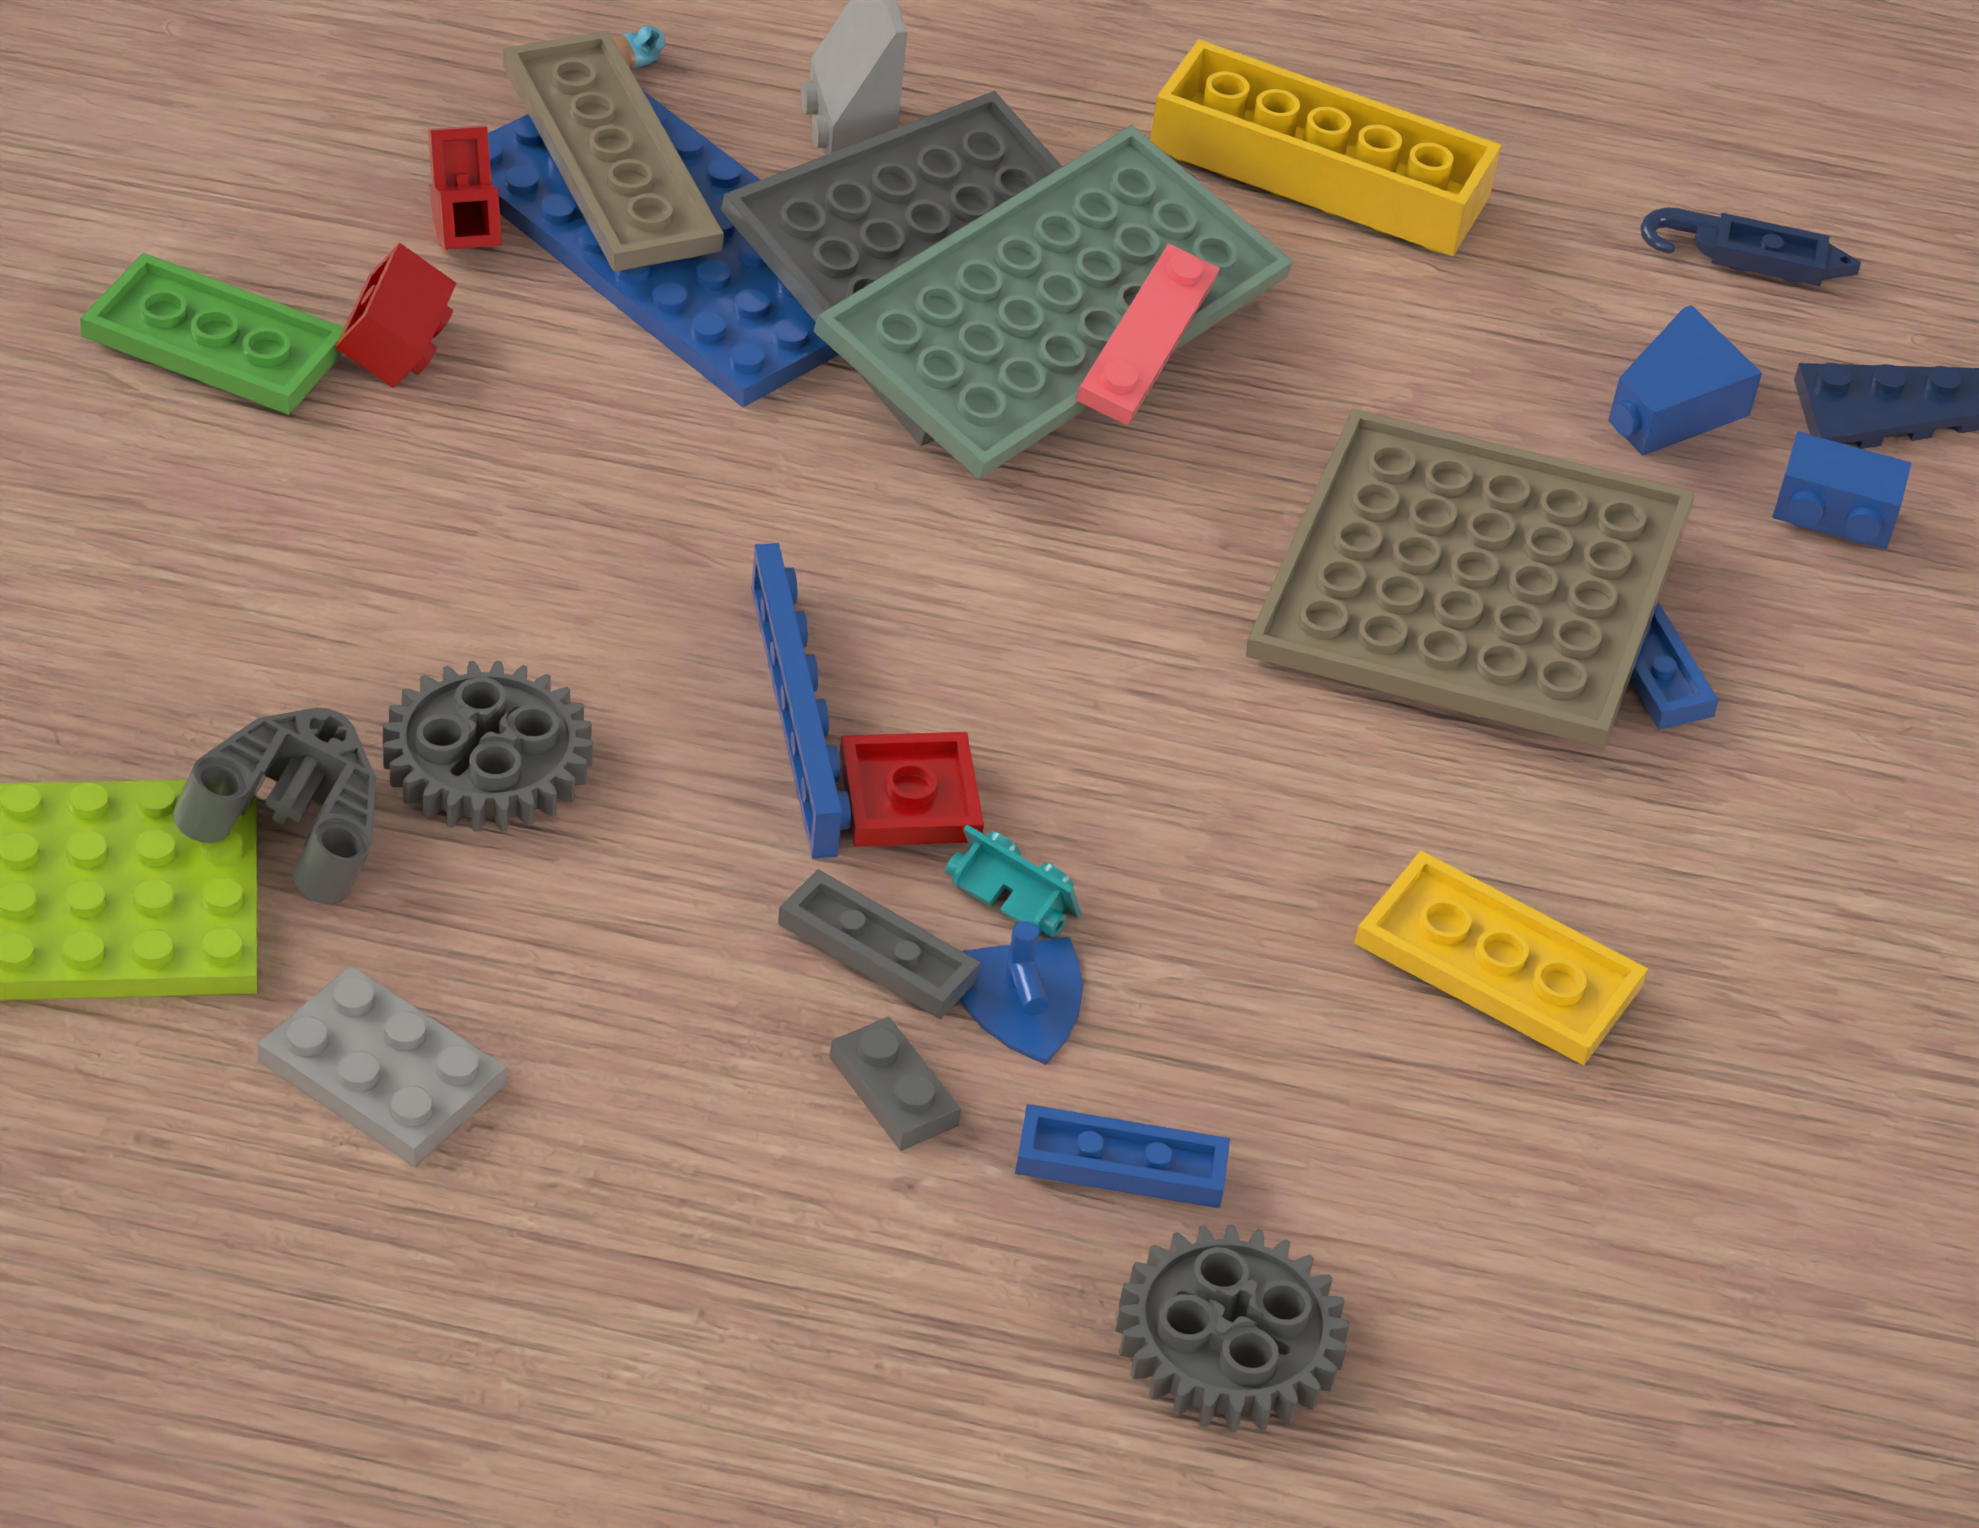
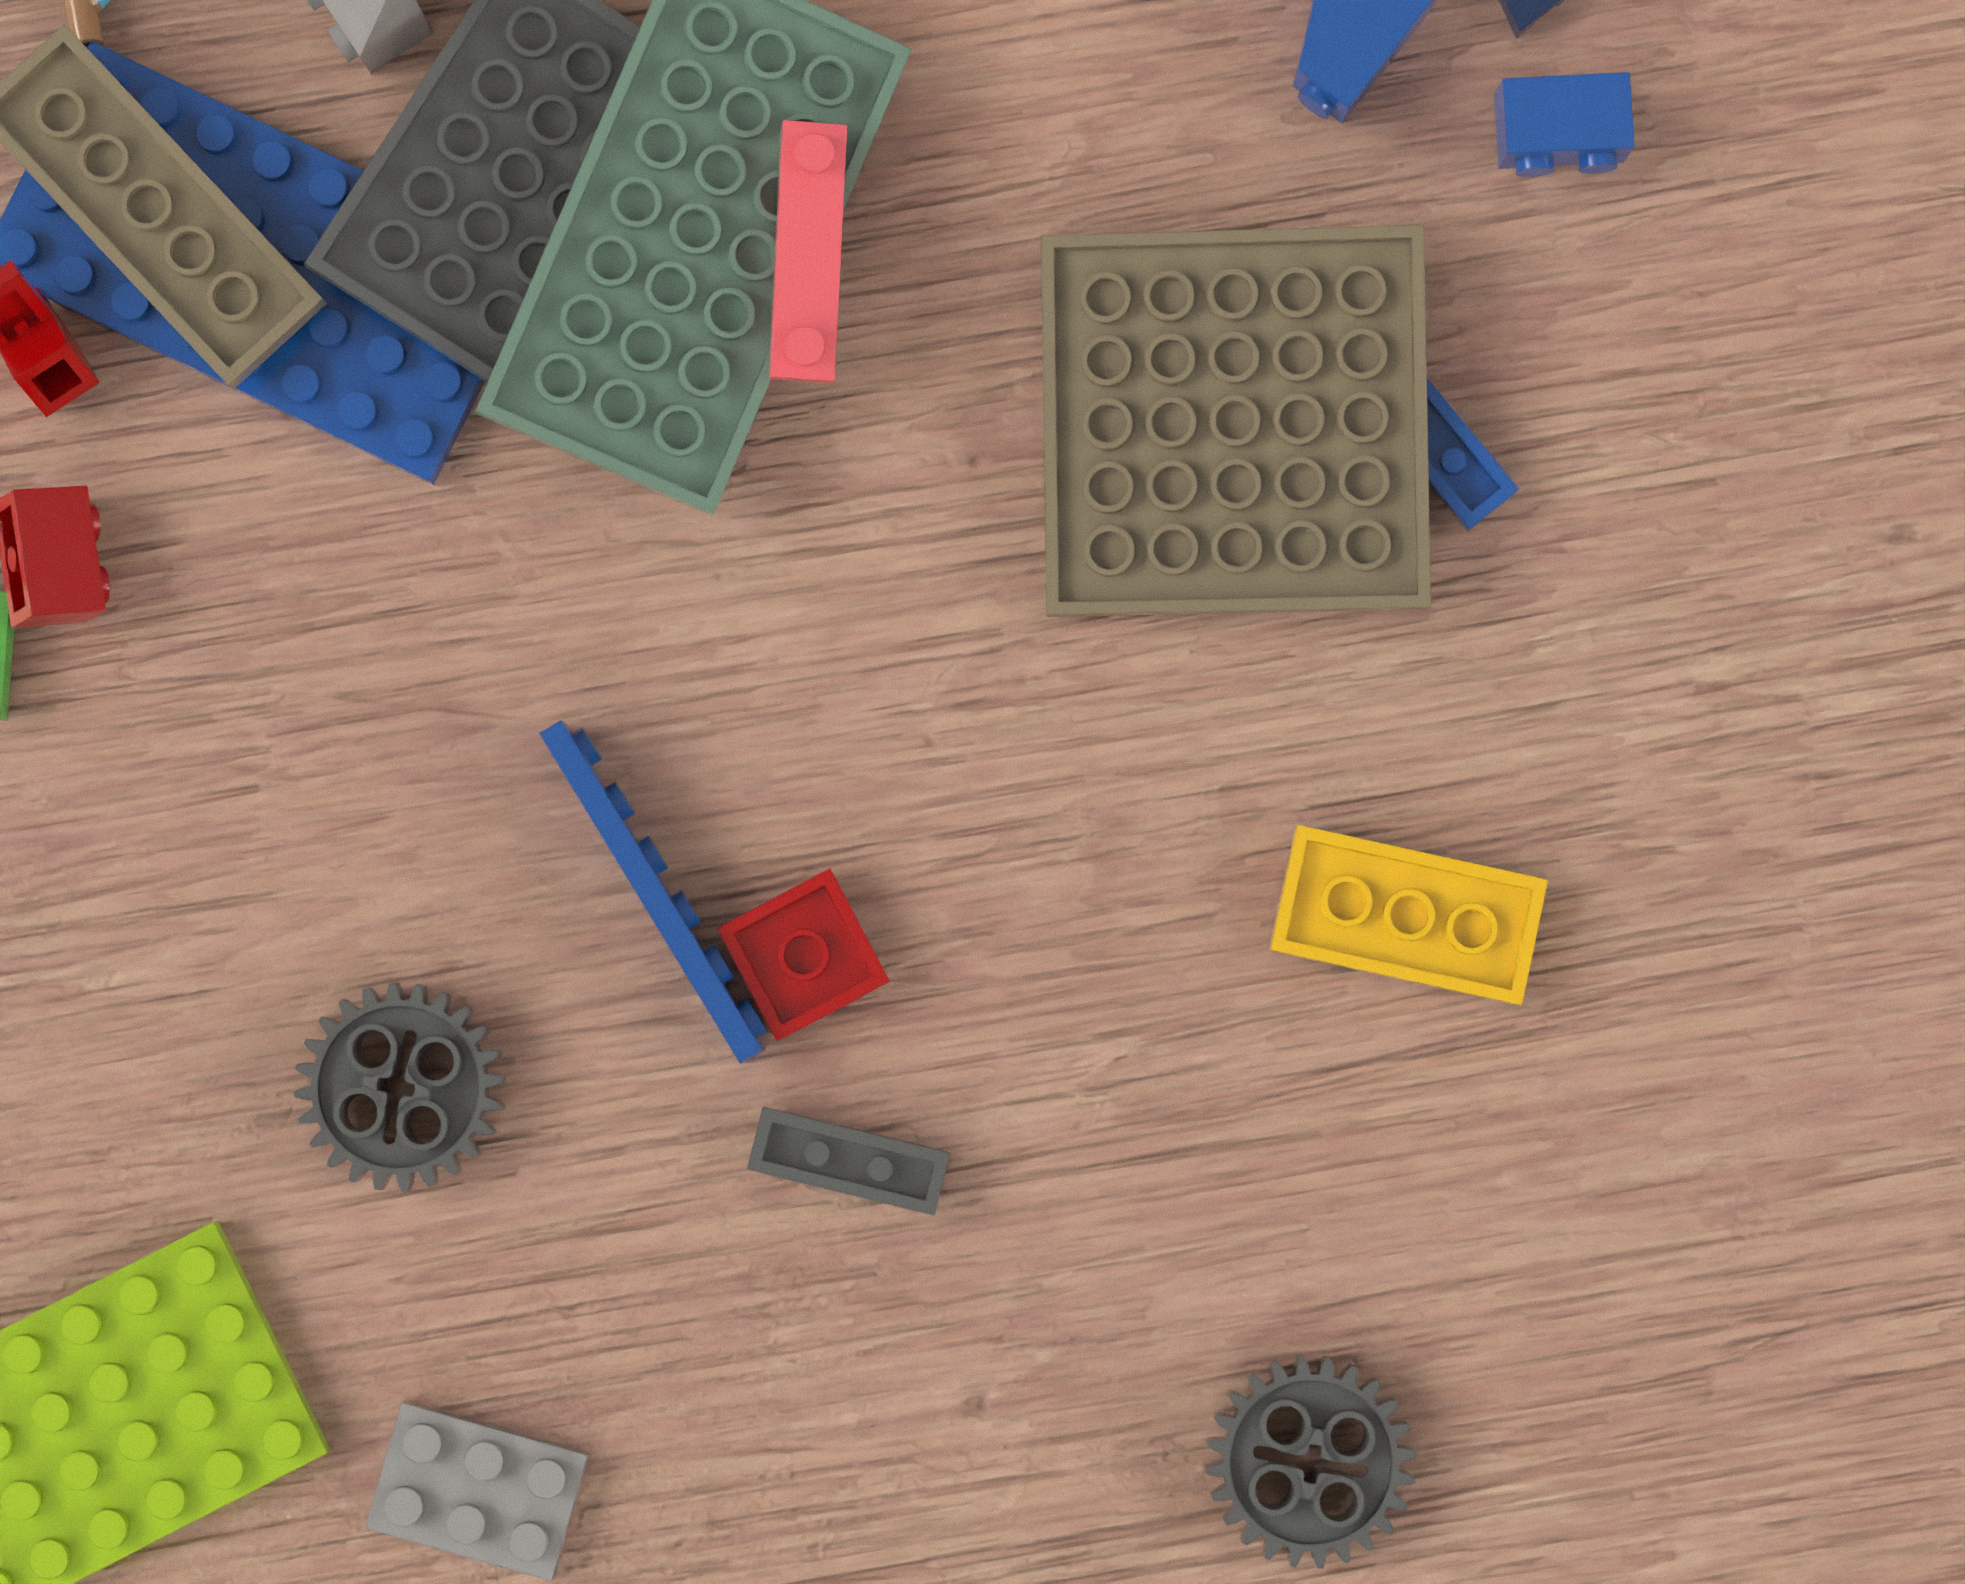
camera: 15 degrees left, 40 degrees up
(310, 758) = (314, 1241): dark grey connector -> none
(895, 1083) = (923, 1307): dark grey plate -> none
(996, 865) = (914, 1015): teal hinge -> none
(1027, 992) = (994, 1140): blue shield -> none
(1123, 1156) = (1152, 1310): blue plate -> none

